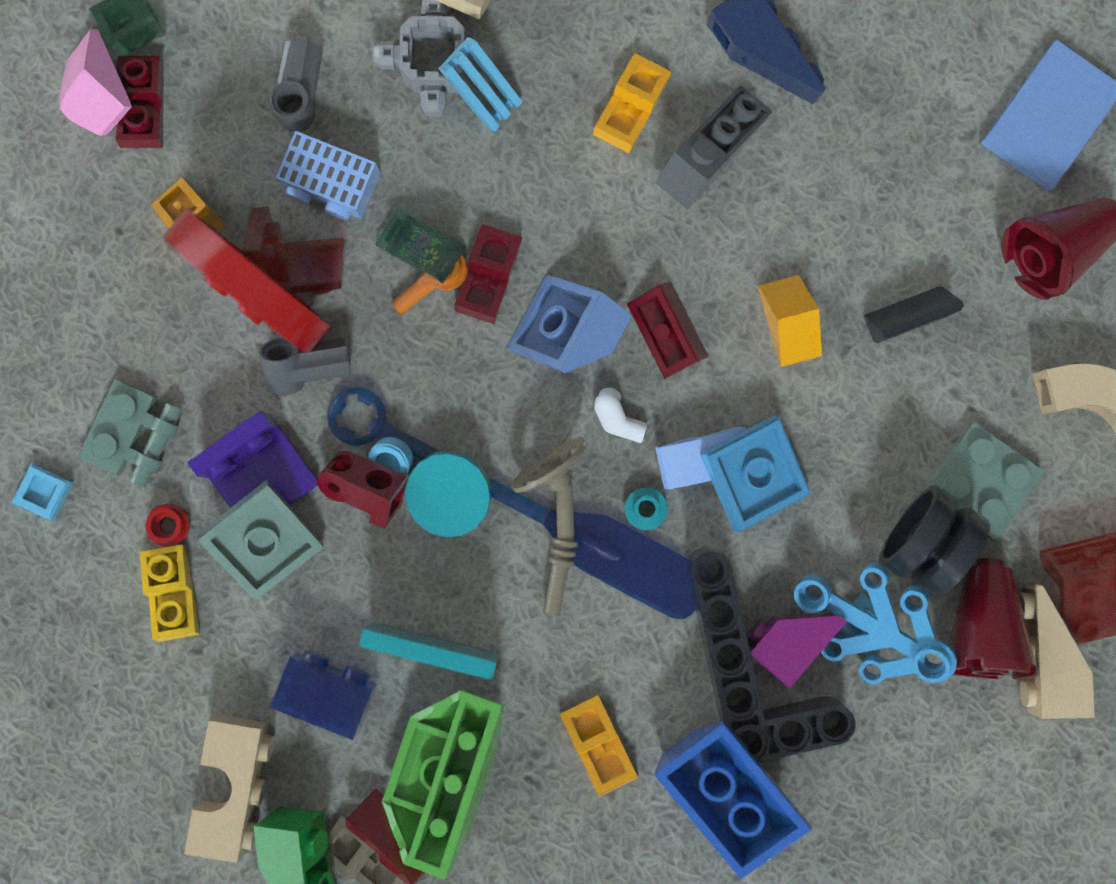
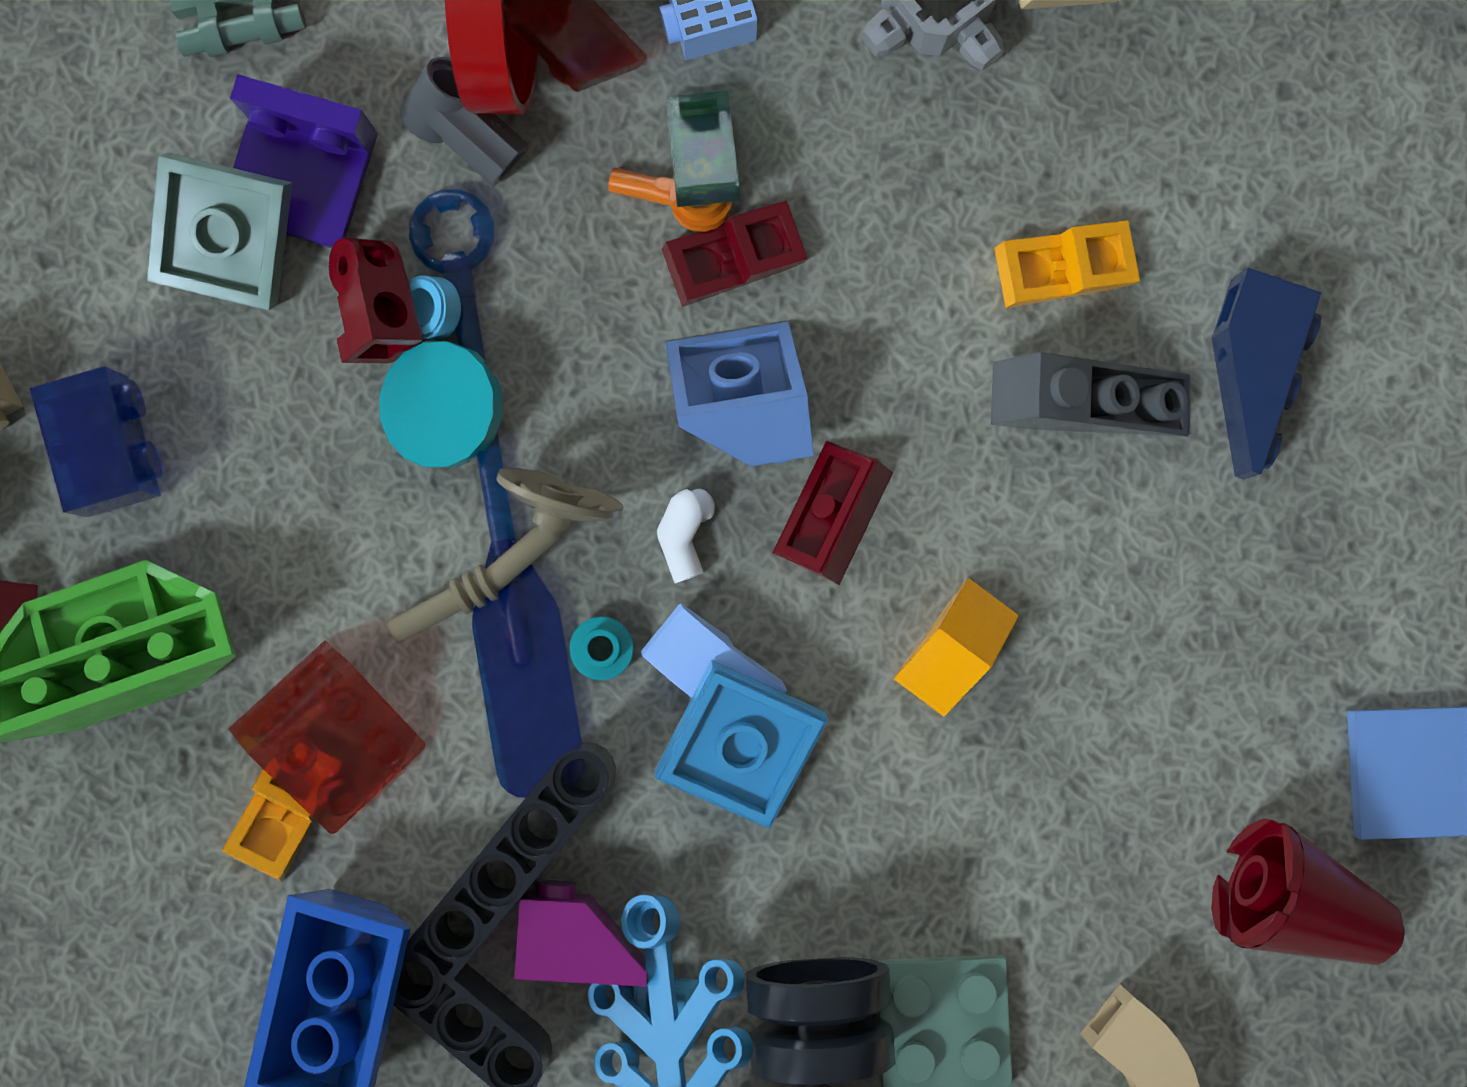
camera: 55 degrees right, 0 degrees up
(154, 525) = (146, 101): red plate -> none
(170, 593) = (92, 170): yellow slope -> none
(429, 650) = (237, 521): teal tile -> none
(501, 108) = (939, 118): medium azure tile -> none
(580, 691) = (327, 737): none -> clear red bracket
(912, 313) = (1077, 784): black slope -> none

